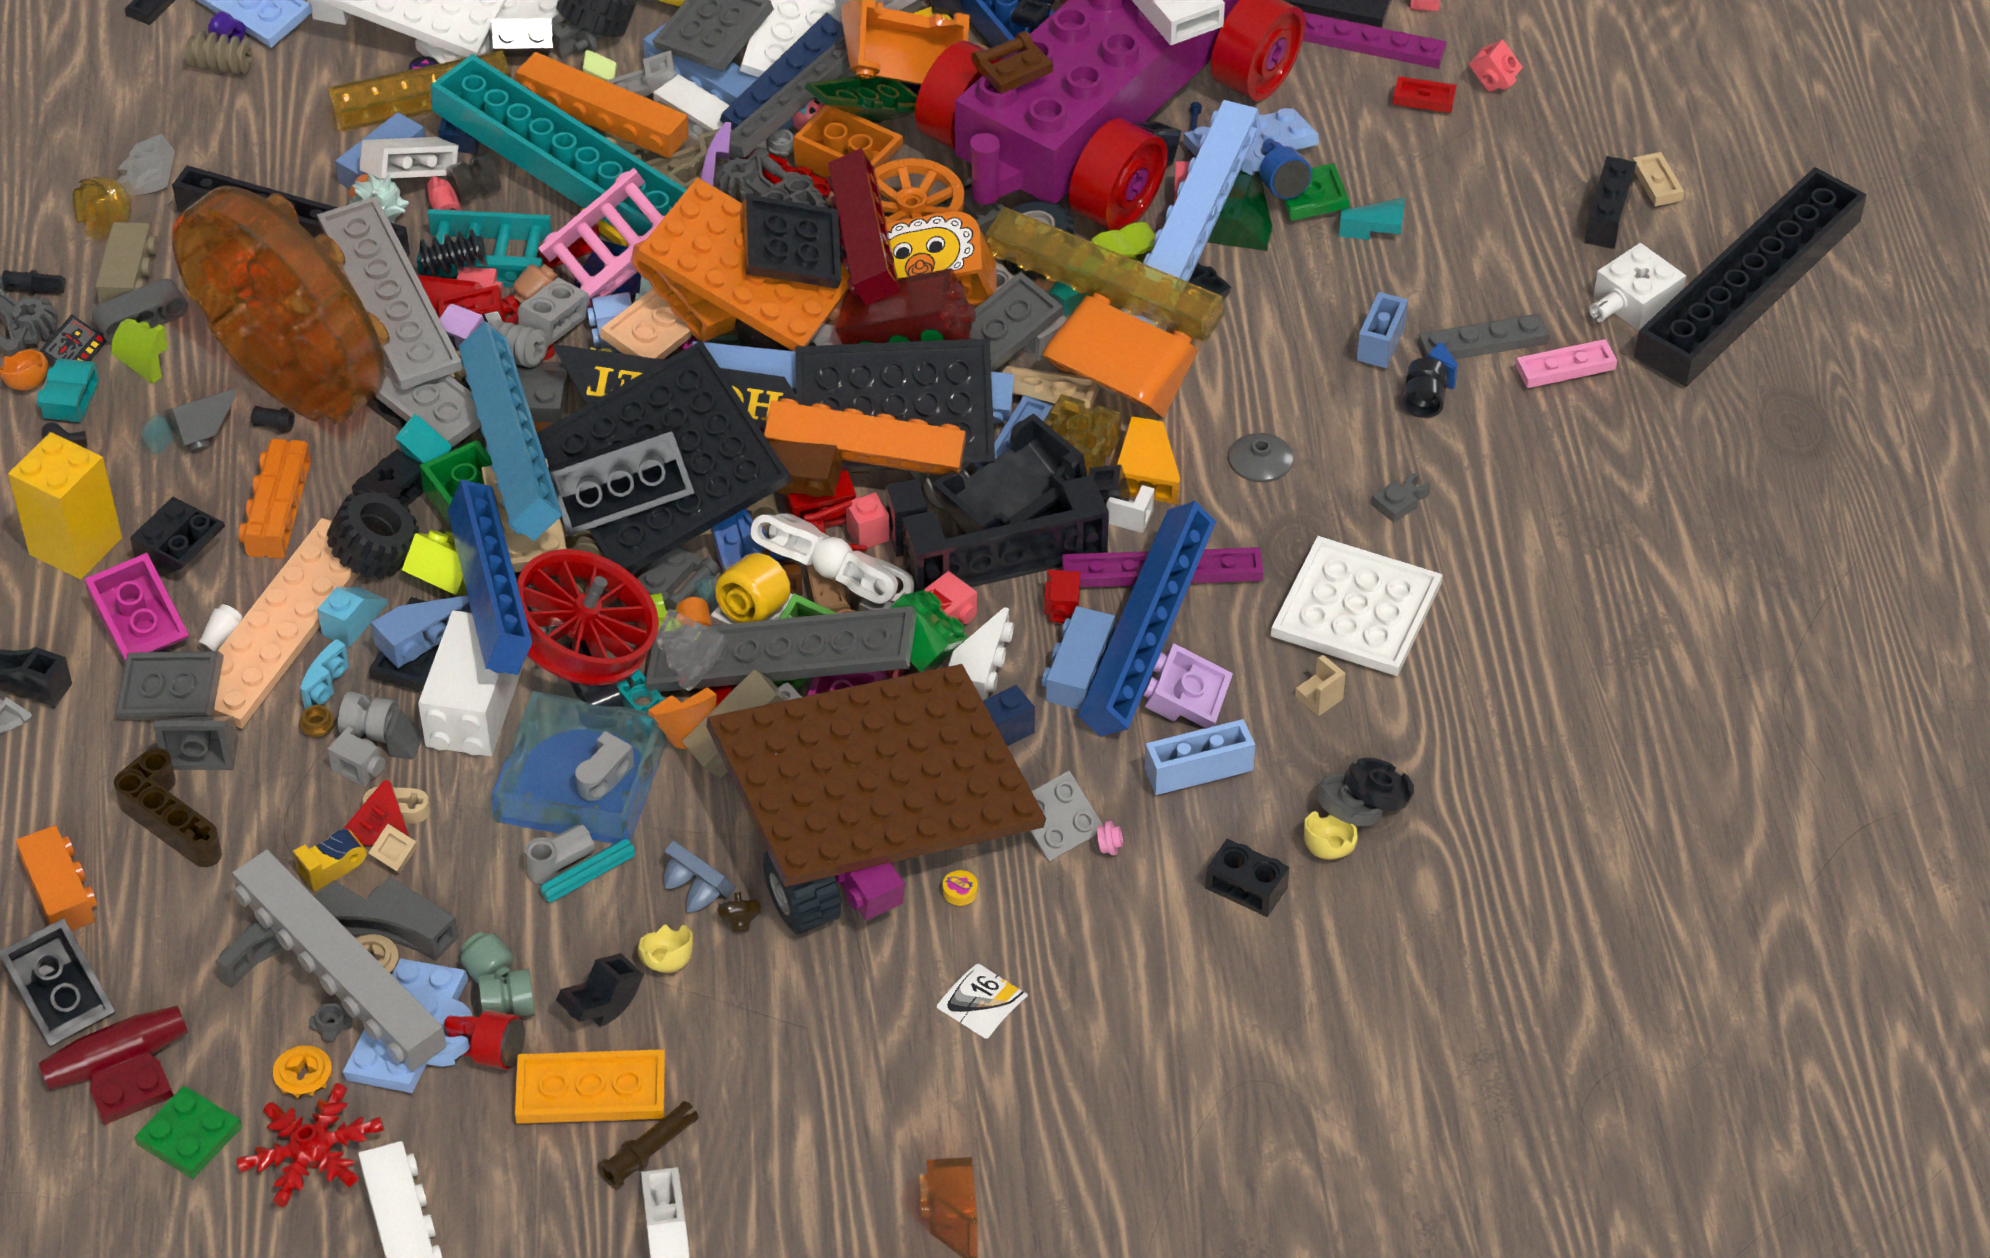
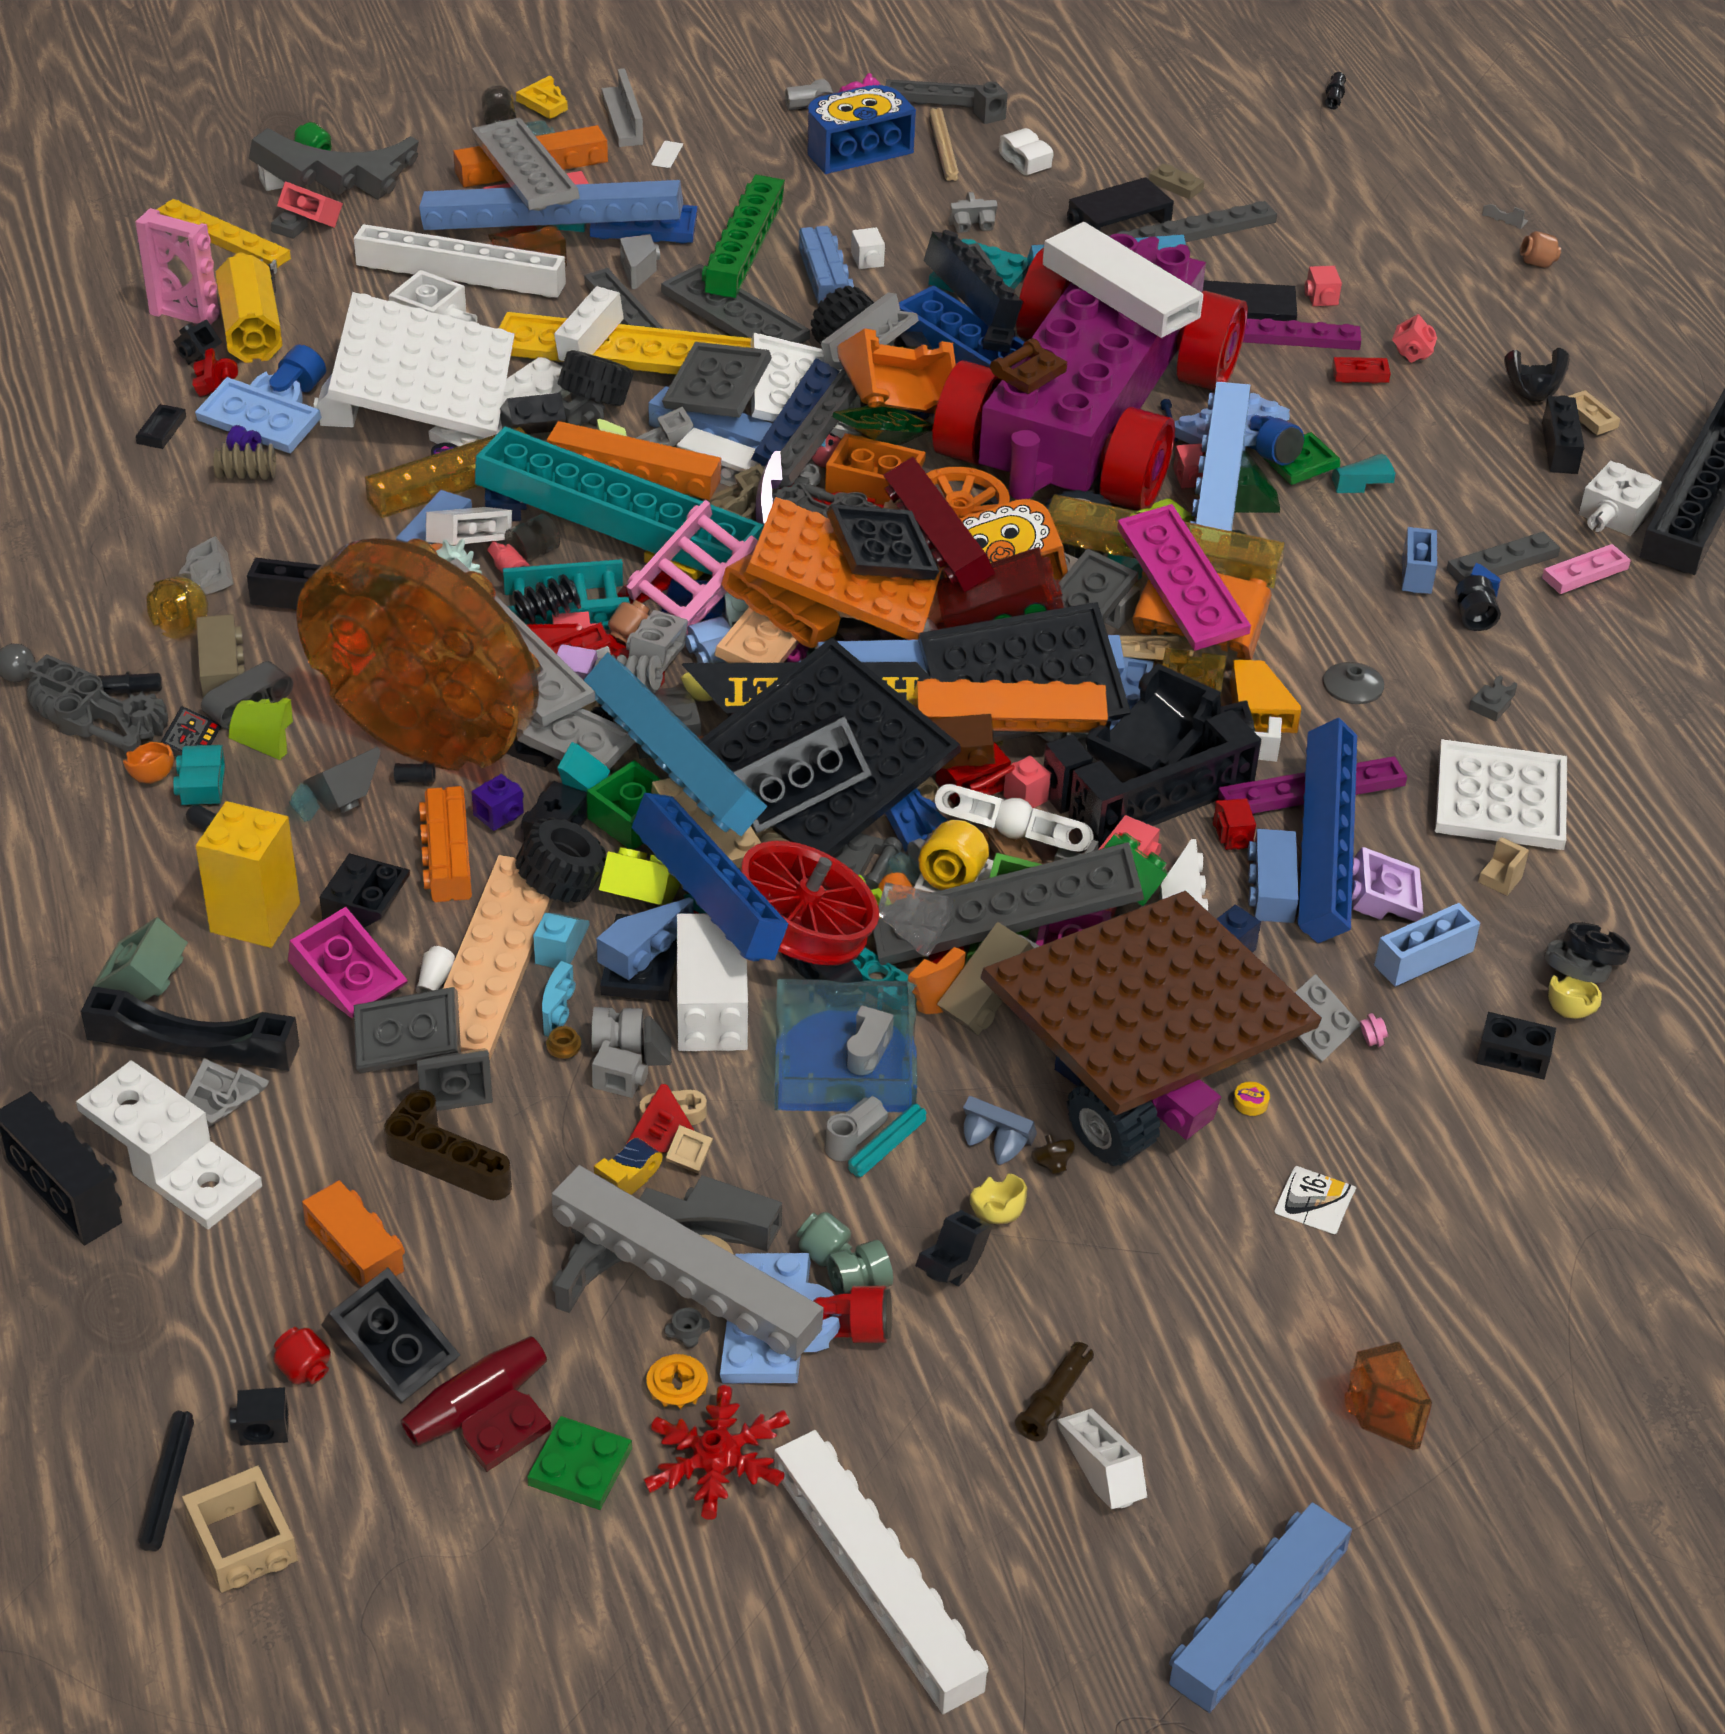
camera: 15 degrees left, 5 degrees down
(338, 462) = (497, 802): none -> dark purple brick
(590, 1086) = (975, 1344): light orange plate -> none
(1099, 320) = (1183, 577): none -> dark pink plate
(1609, 133) = (1538, 380): none -> black hair

